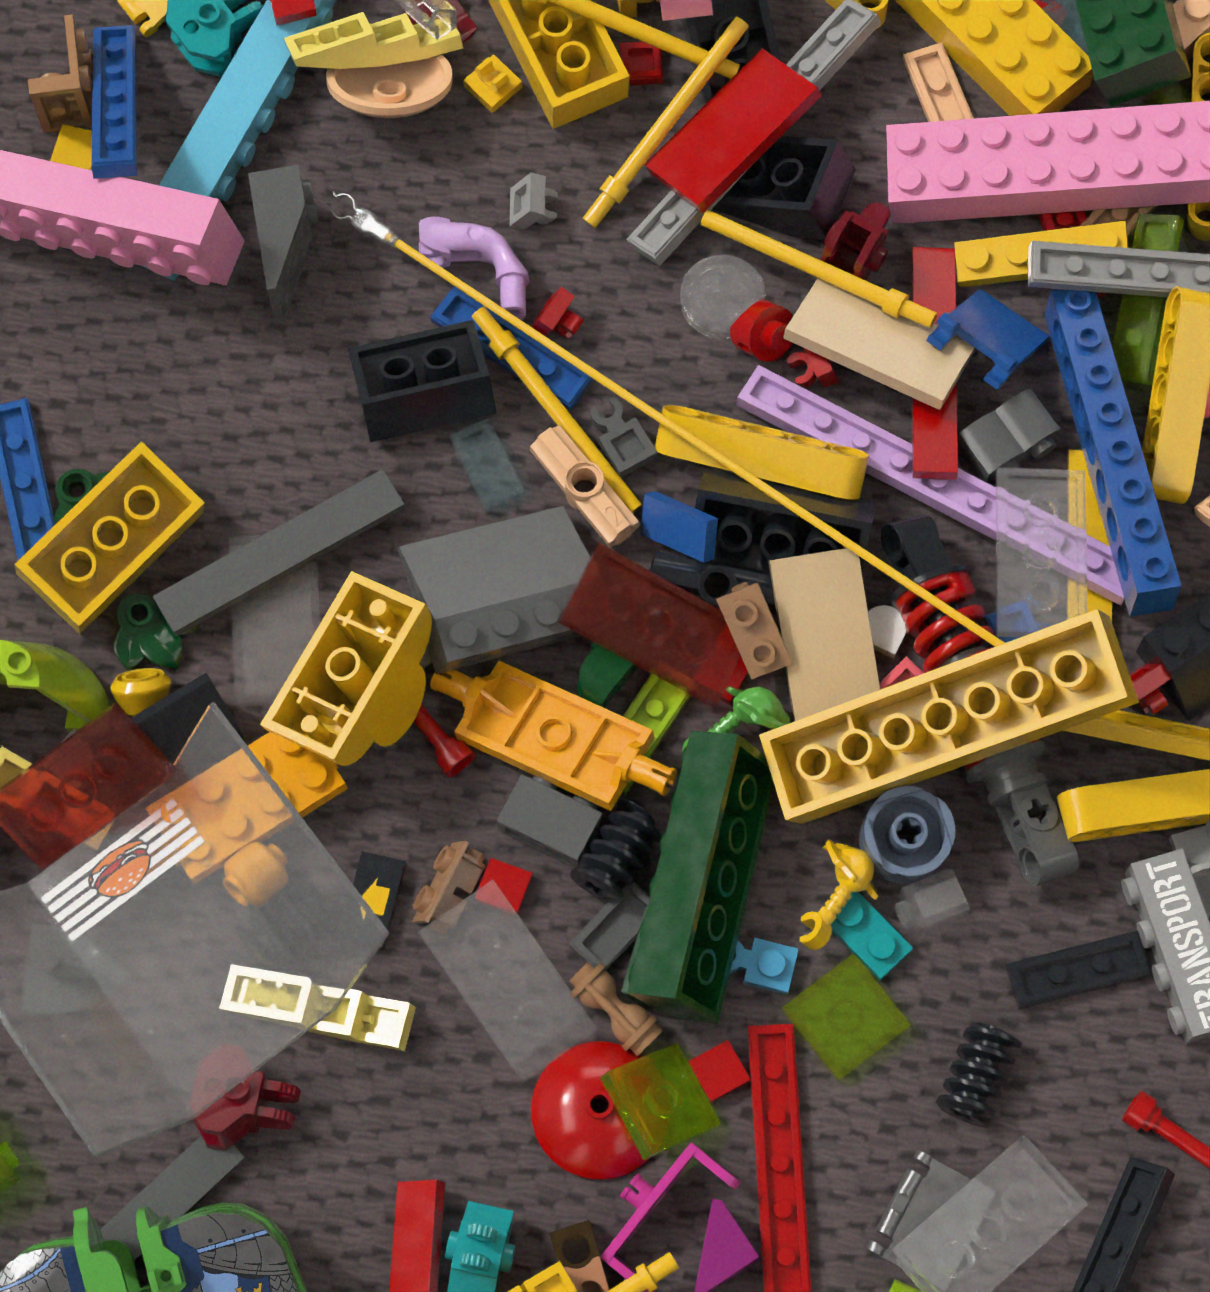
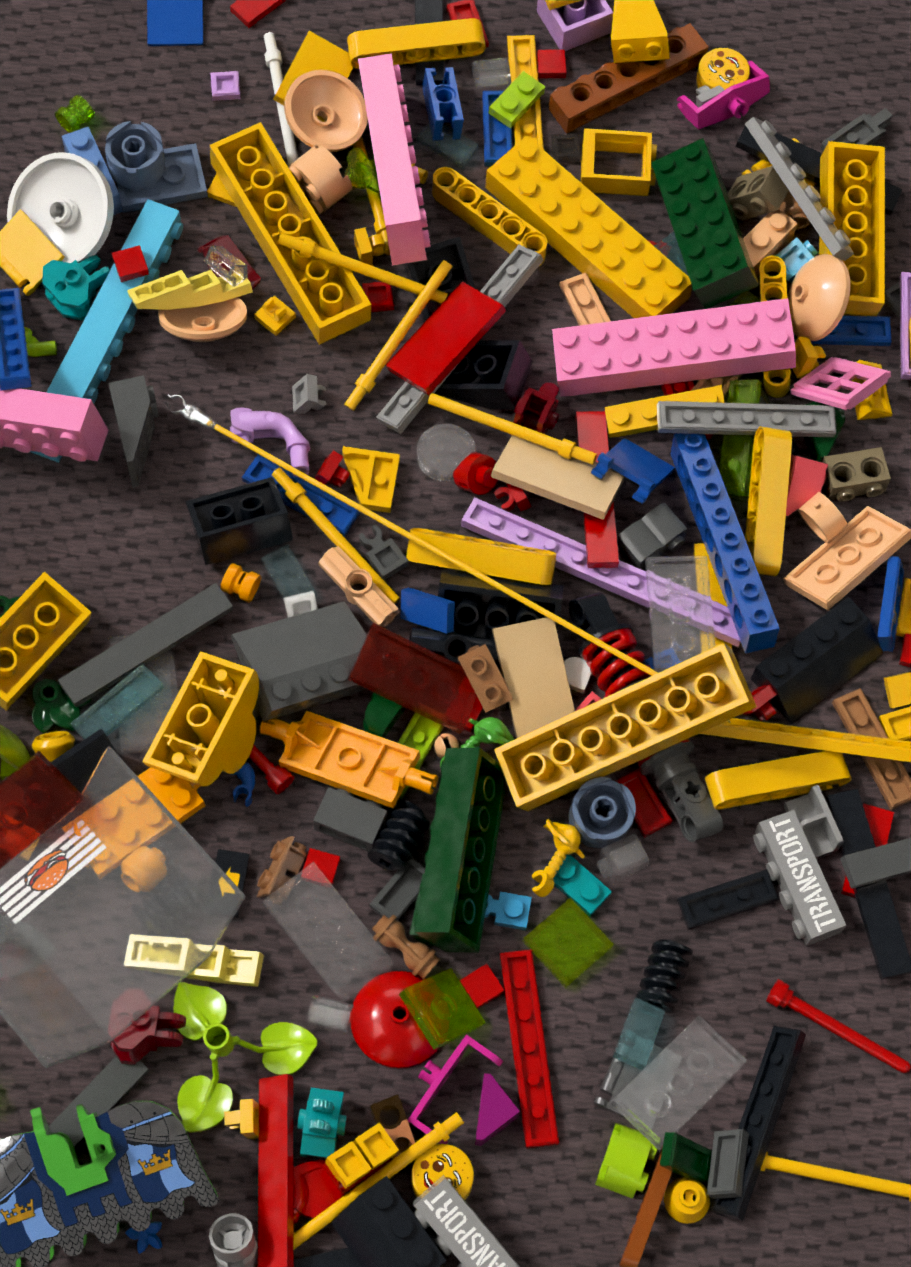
camera: 10 degrees left, 5 degrees down
(152, 114) = (37, 348): none -> lime arm
(236, 635) = (119, 703): none -> clear light blue tile
(319, 1208) = (205, 1101): none -> lime plant
(374, 1239) = (244, 1119): none -> yellow tile
(410, 751) = (247, 776): none -> blue arm
(418, 470) = (240, 582): none -> light orange wheel
(500, 506) = (300, 603): none -> white tile
(502, 1098) = (329, 1015): none -> clear piece
(615, 327) = (372, 476): none -> yellow wing
(684, 724) = (440, 746): none -> light nougat hinge
(936, 1156) = (638, 1034): none -> clear light blue tile
(975, 834) = (650, 812): none -> red tile

